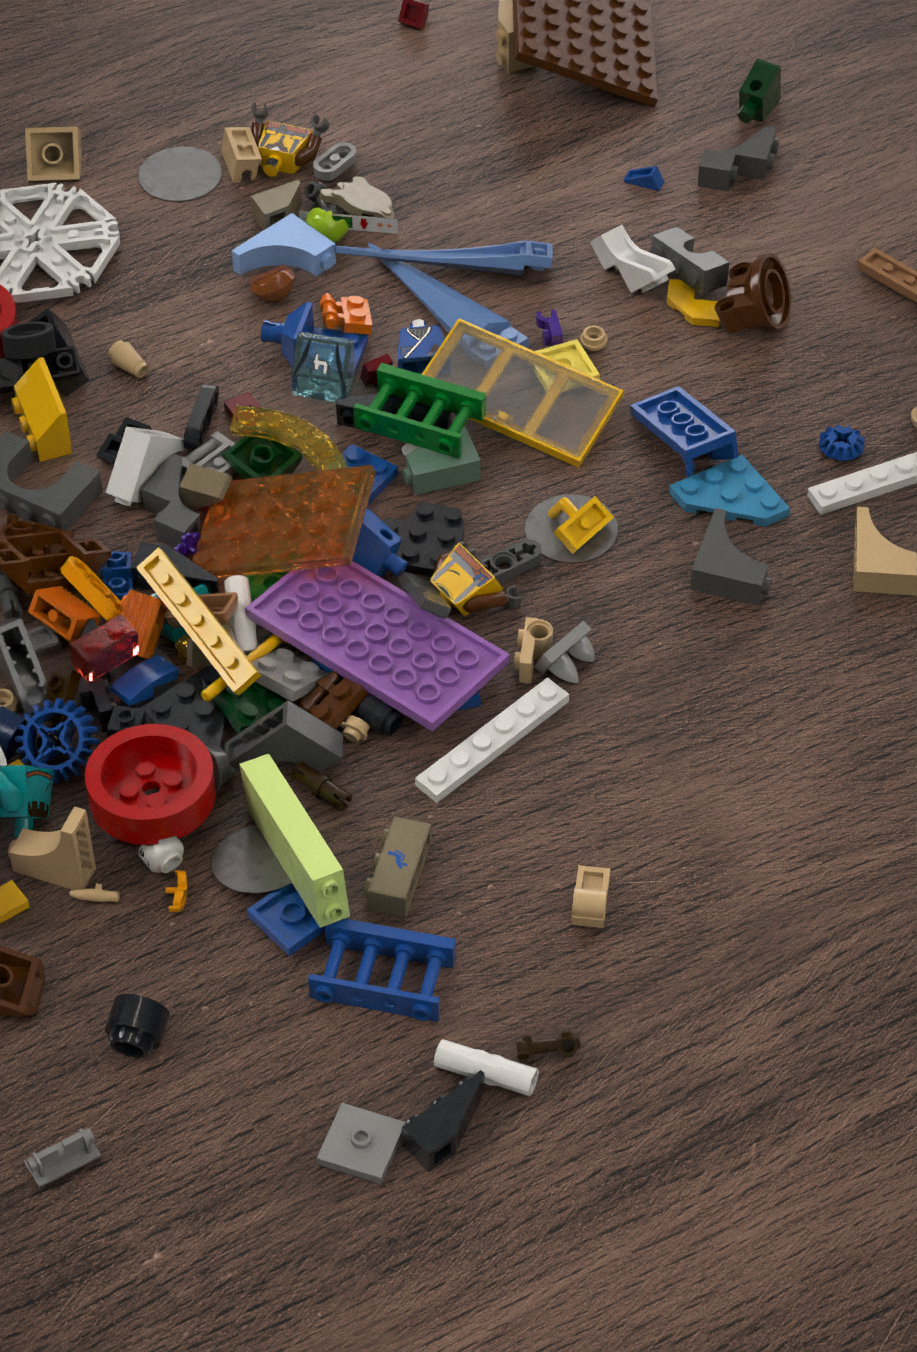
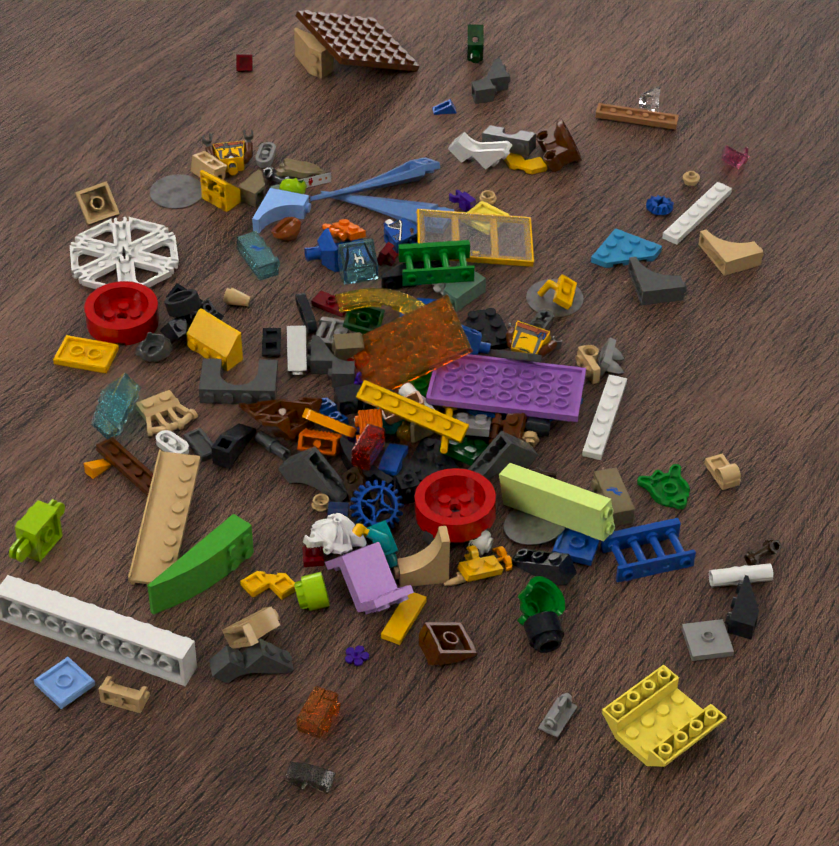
camera: 30 degrees left, 5 degrees down
(132, 889) = (479, 568): none -> yellow plate
(165, 973) = (540, 596): none -> green helmet
(190, 1227) = (659, 719): none -> light yellow slope
(204, 308) = (258, 255): none -> clear light blue brick
(222, 928) = (551, 565): none -> black slope
(224, 193) = (219, 191): none -> yellow slope
(494, 888) = (667, 488): none -> green tile
(686, 427) = (579, 223): blue plate -> none

